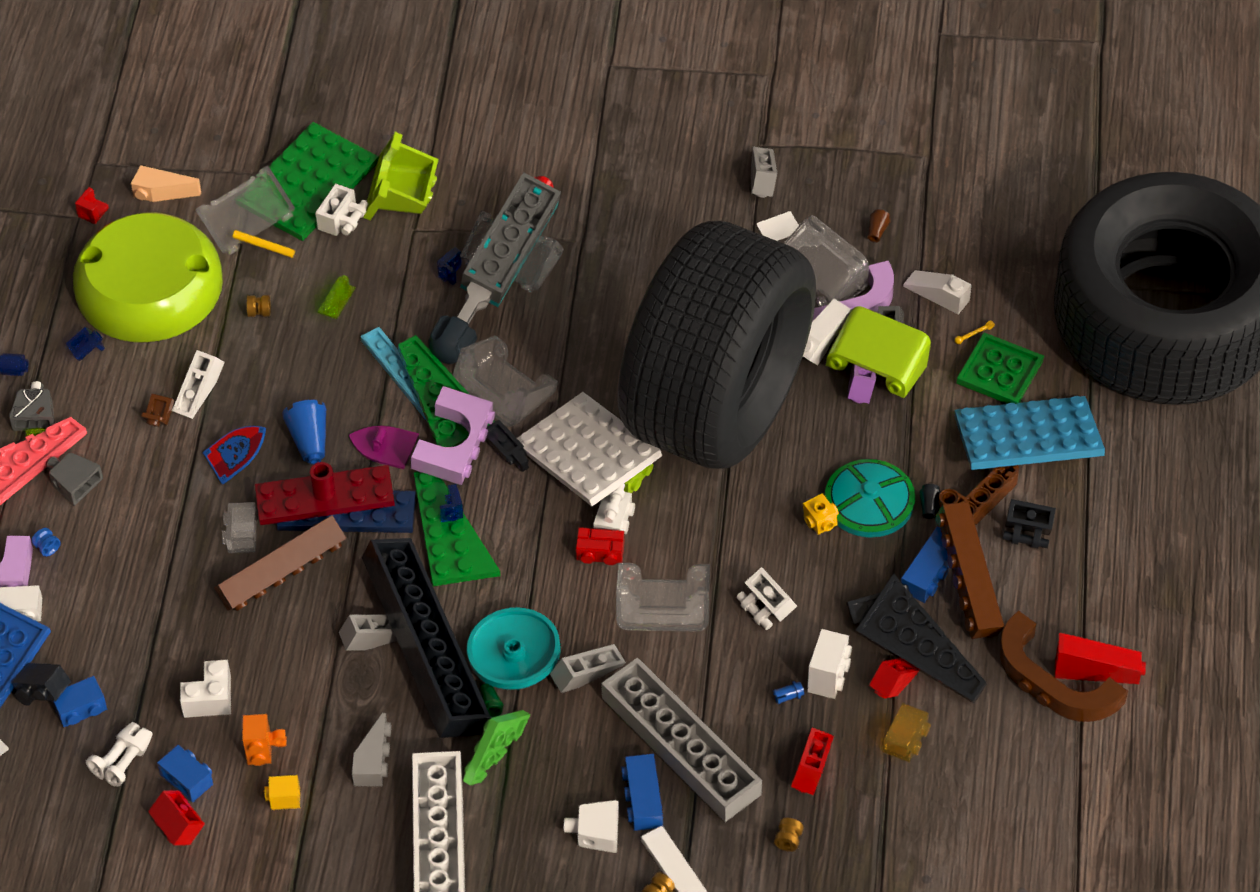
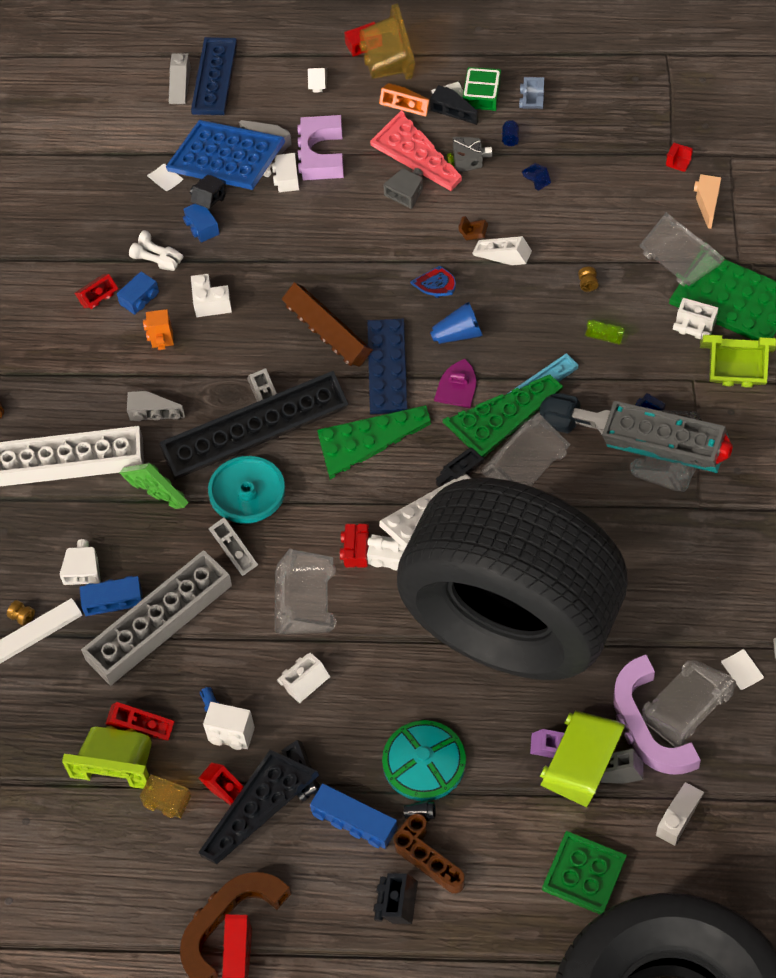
camera: 90 degrees right, 5 degrees up
(46, 542) = (343, 180): blue wheel -> none
(147, 277) = (606, 202): lime cylinder -> none
(241, 527) = (362, 297): clear brick -> none
(264, 243) = (656, 274): yellow bar -> none
(283, 792) = (119, 355): yellow brick -> none
(324, 493) = (393, 345): dark red plate -> none
(453, 508) = (388, 433): clear blue bracket -> none
(455, 462) = (474, 436): lavender arch -> none
(492, 700) = (199, 481): dark green cone -> none
(788, 836) = (67, 706): pearl gold wheel -> none
(820, 514) = (395, 715): yellow brick -> none
(824, 330) = (598, 702): white slope -> none
(856, 782) = (111, 754): none -> lime windscreen
(878, 223) = (754, 754): reddish brown cone -> none
(969, 570) = (330, 841): reddish brown brick -> none
(989, 325) = (621, 835): yellow hinge -> none
(1029, 432) = (502, 898): dark azure plate -> none

